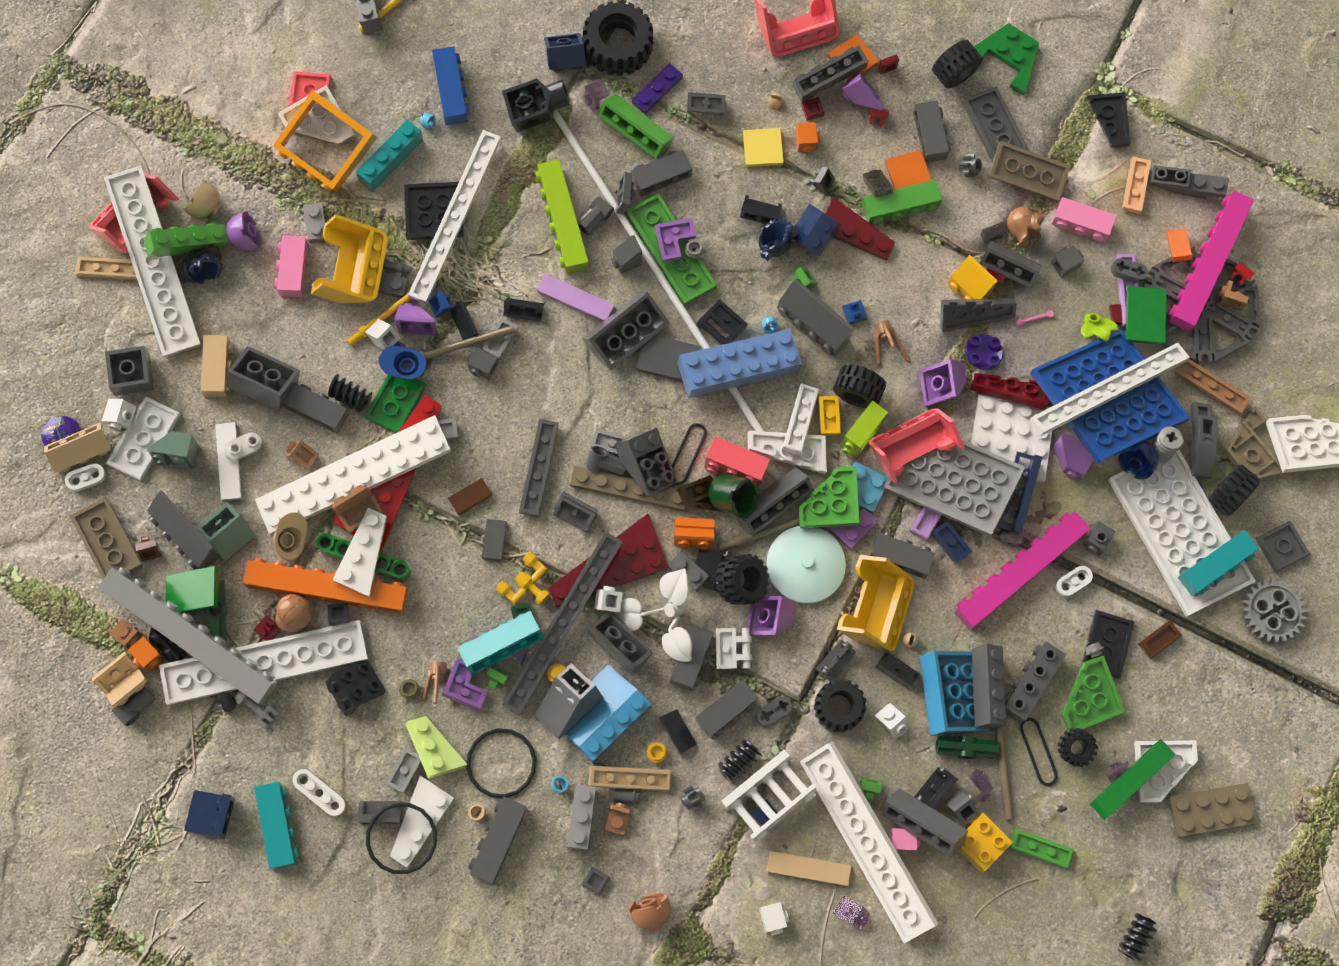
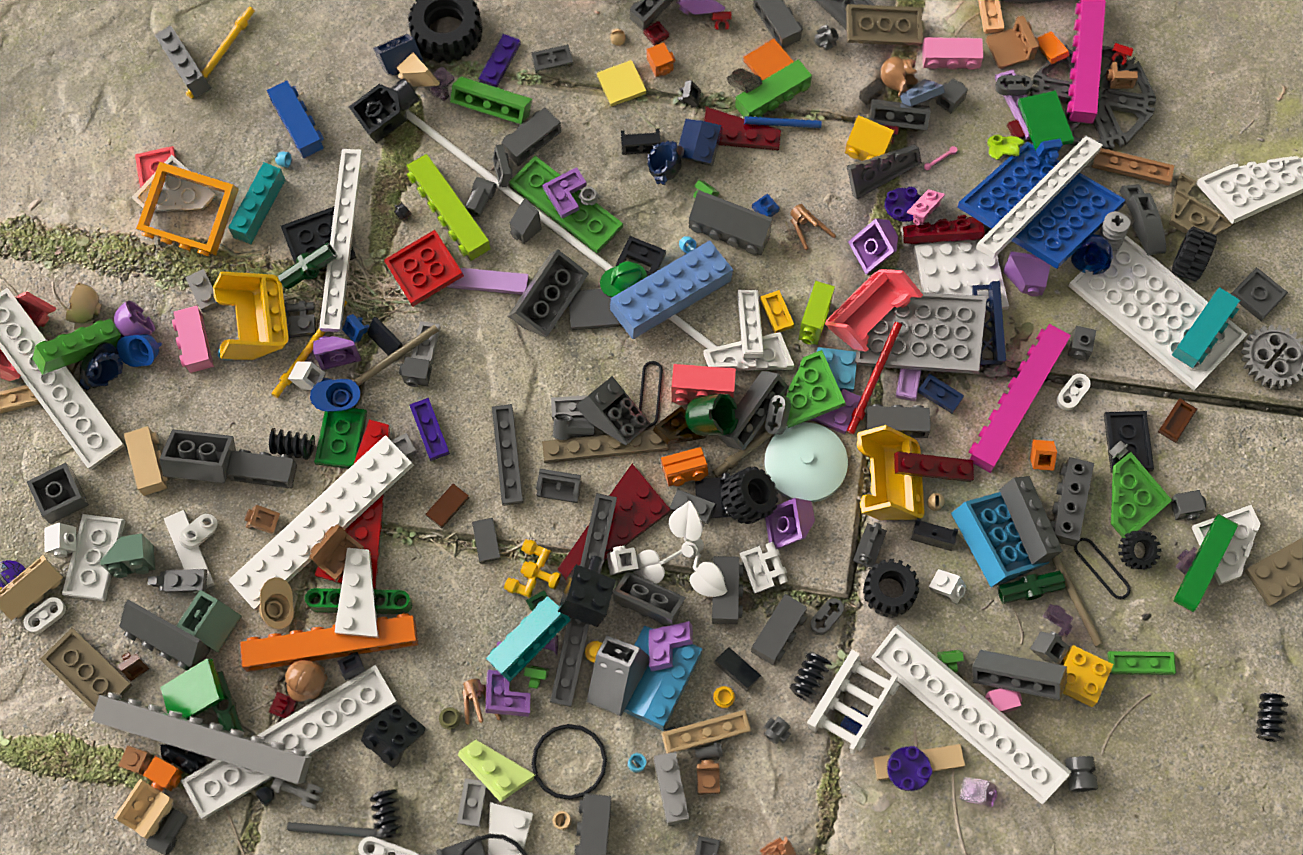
camera: 10 degrees left, 5 degrees down
(213, 486) = (180, 580): none -> hinge
(240, 260) = (138, 350): none -> blue piece
(275, 752) = (330, 829): none -> dark grey bar
(326, 755) = (385, 814): none -> black piece
(416, 232) = (307, 266): none -> dark green piece
(477, 421) = (429, 429): none -> dark purple plate
(519, 207) = (402, 211): none -> black plate
(521, 267) = (423, 268): none -> red plate
(523, 309) = (439, 307): black hinge -> none
(566, 620) = (587, 593): none -> black brick
(575, 77) = (416, 72): none -> tan slope
(619, 685) = (663, 640): none -> medium lavender plate
(698, 337) = (621, 277): none -> green piece
(774, 918) = (902, 824): white brick -> none
(794, 513) = (778, 415): none -> dark grey beam
(797, 872) = (909, 768): none -> dark purple dish
(859, 386) = (796, 272): black tyre -> none
(869, 536) = (858, 413): none -> red bar
(899, 235) = (782, 122): none -> blue bar
(919, 608) = (933, 466): none -> dark red plate
(936, 787) = (1016, 636): black hinge -> none
(948, 928) = (1081, 774): none -> dark grey wheel
(1002, 360) = (925, 205): none -> bright pink hinge
(1023, 631) = (1043, 455): none -> orange brick
(1038, 250) = (921, 92): none -> sand blue wing
(1137, 345) = (1049, 150): none -> blue tile
(1138, 721) = (1188, 505): none -> dark grey brick
(1144, 230) = (1013, 45): none -> medium nougat bracket

